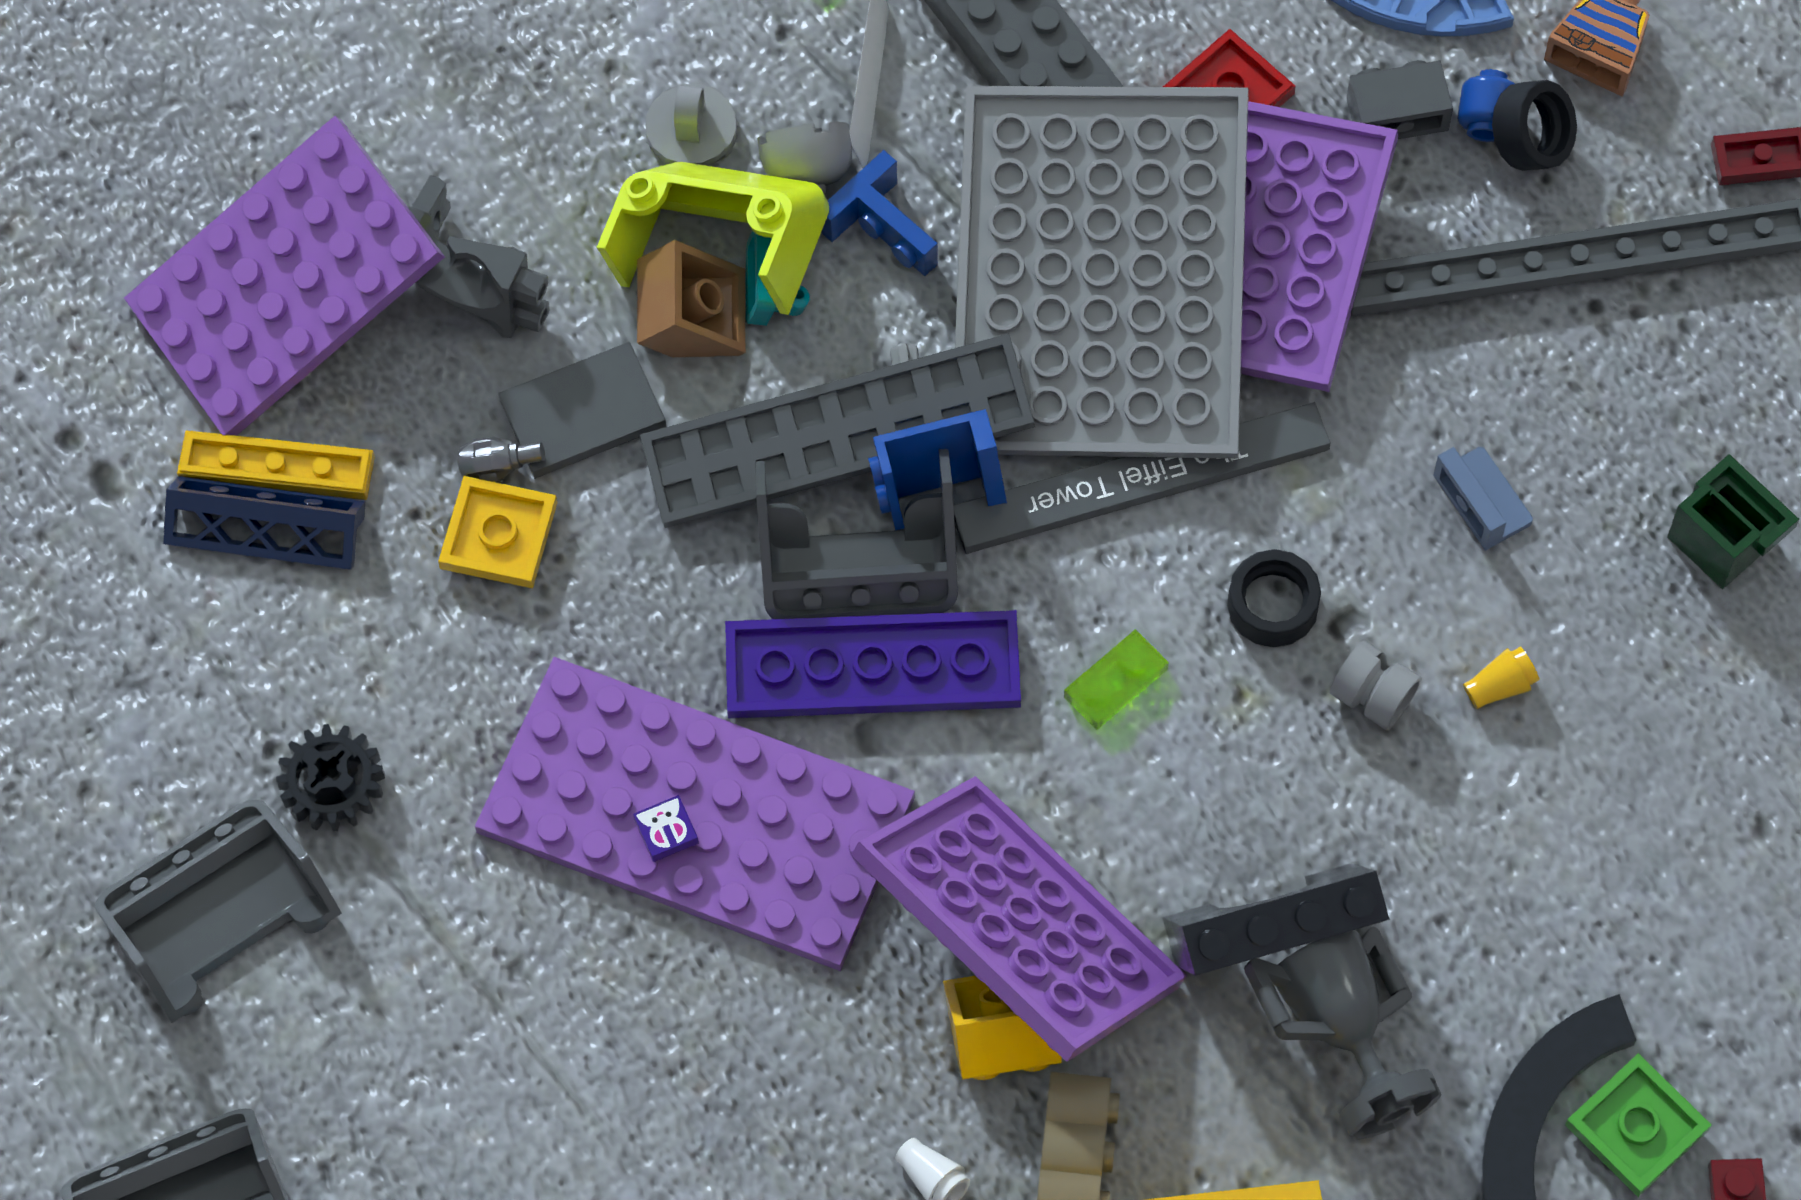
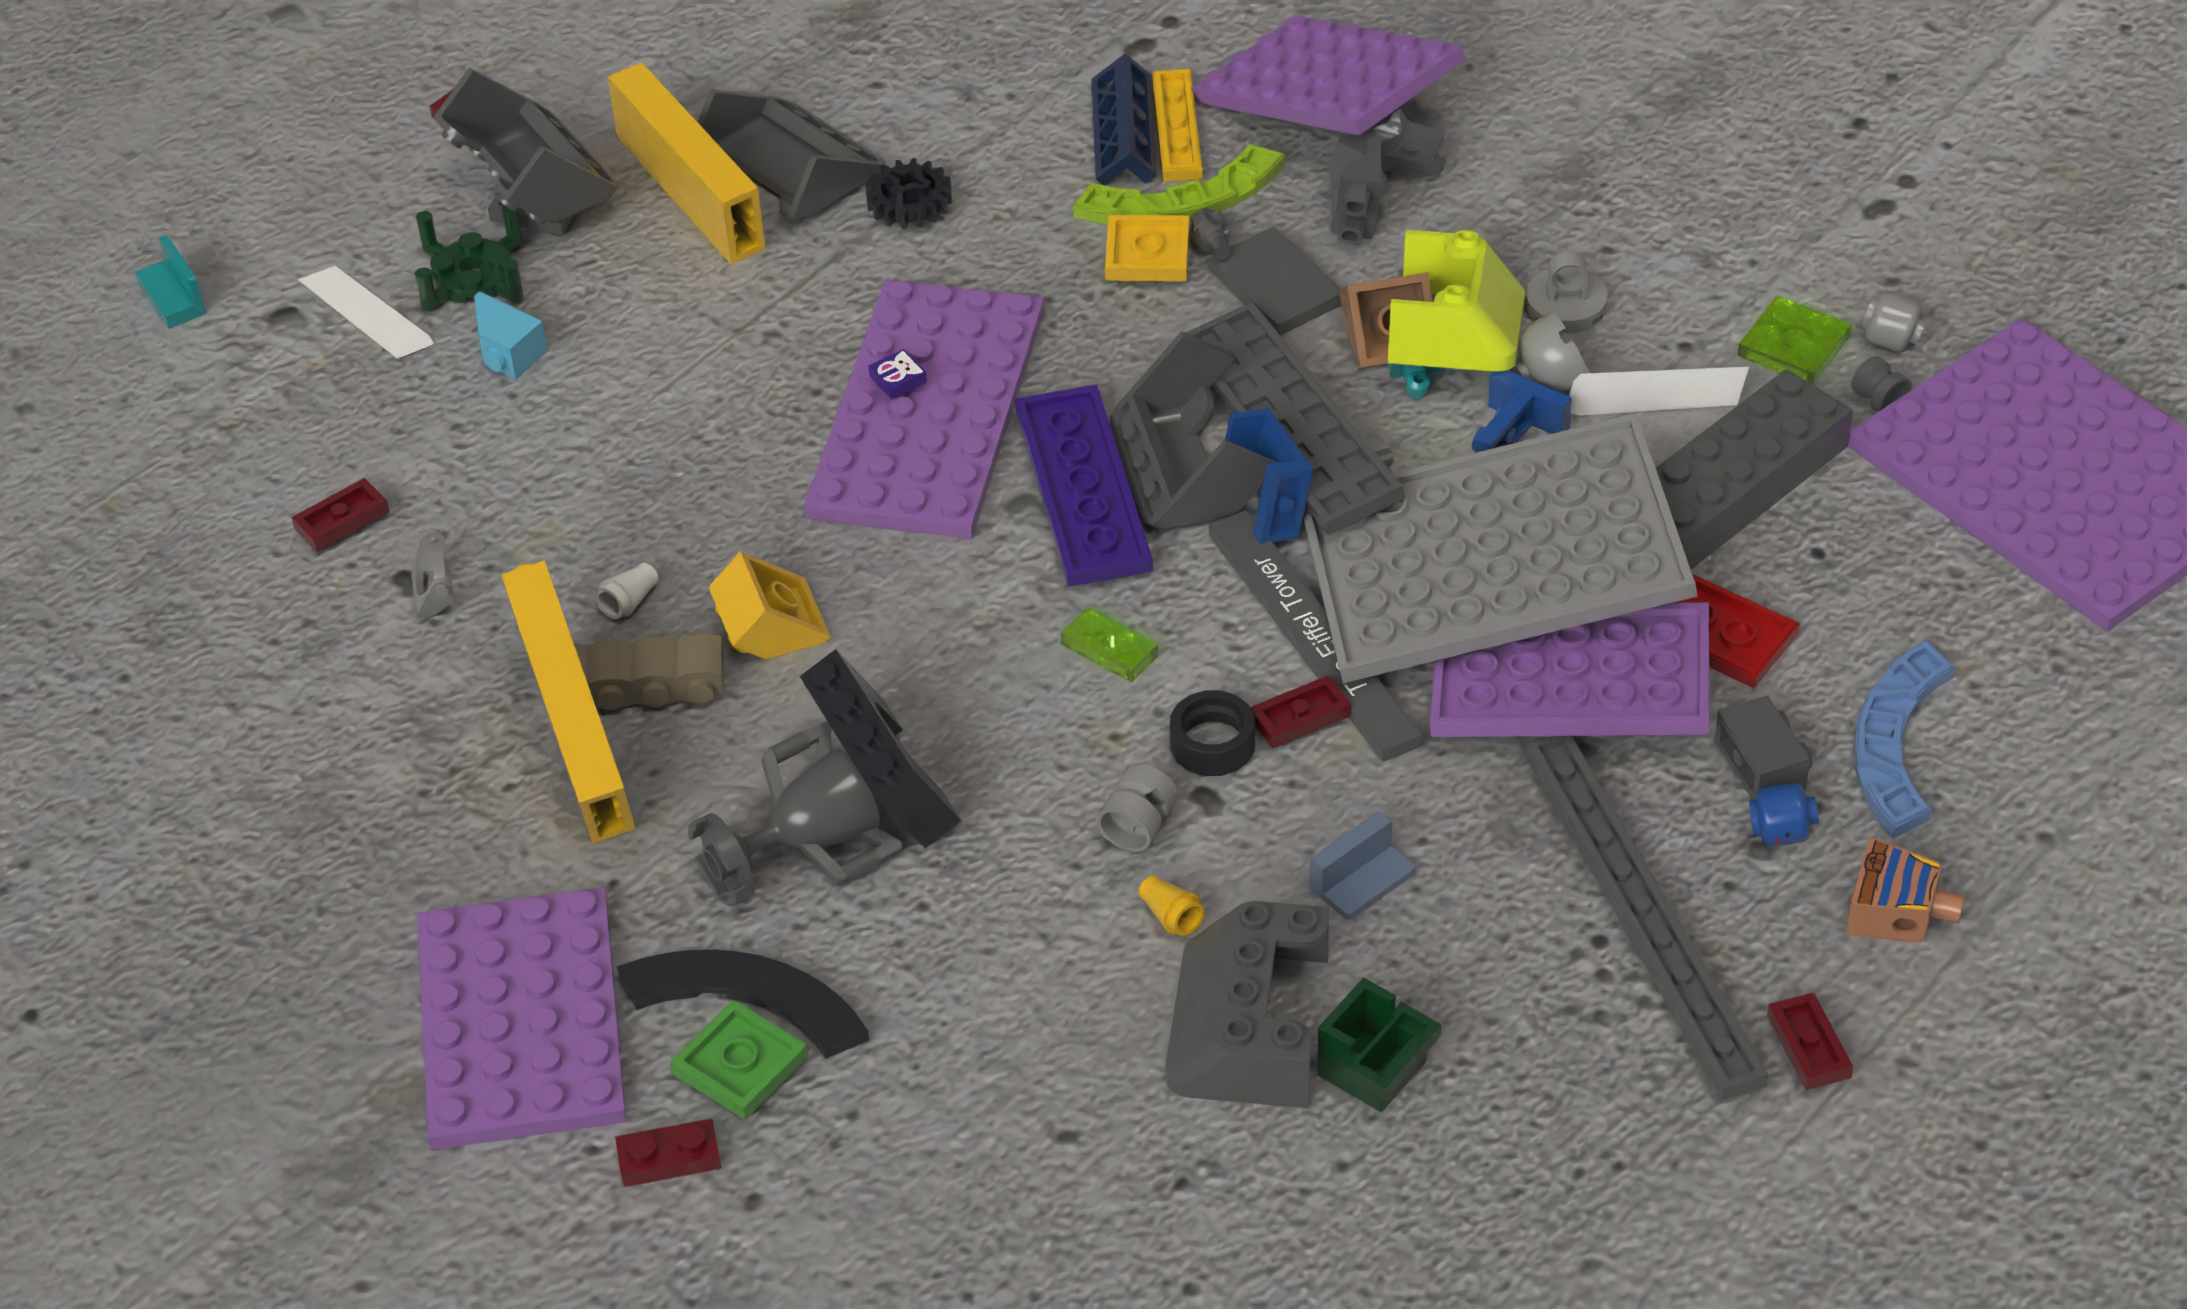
camera: 80 degrees right, 20 degrees down
(217, 1024) = (687, 163): none -> yellow brick
(416, 481) = (1232, 185): none -> lime tile
(1019, 917) = (849, 572): medium lavender plate -> none
(1260, 507) = (1301, 711): none -> dark red plate
(1557, 121) = (1758, 875): black tyre -> none
(1649, 641) = (1220, 1028): none -> dark grey windscreen

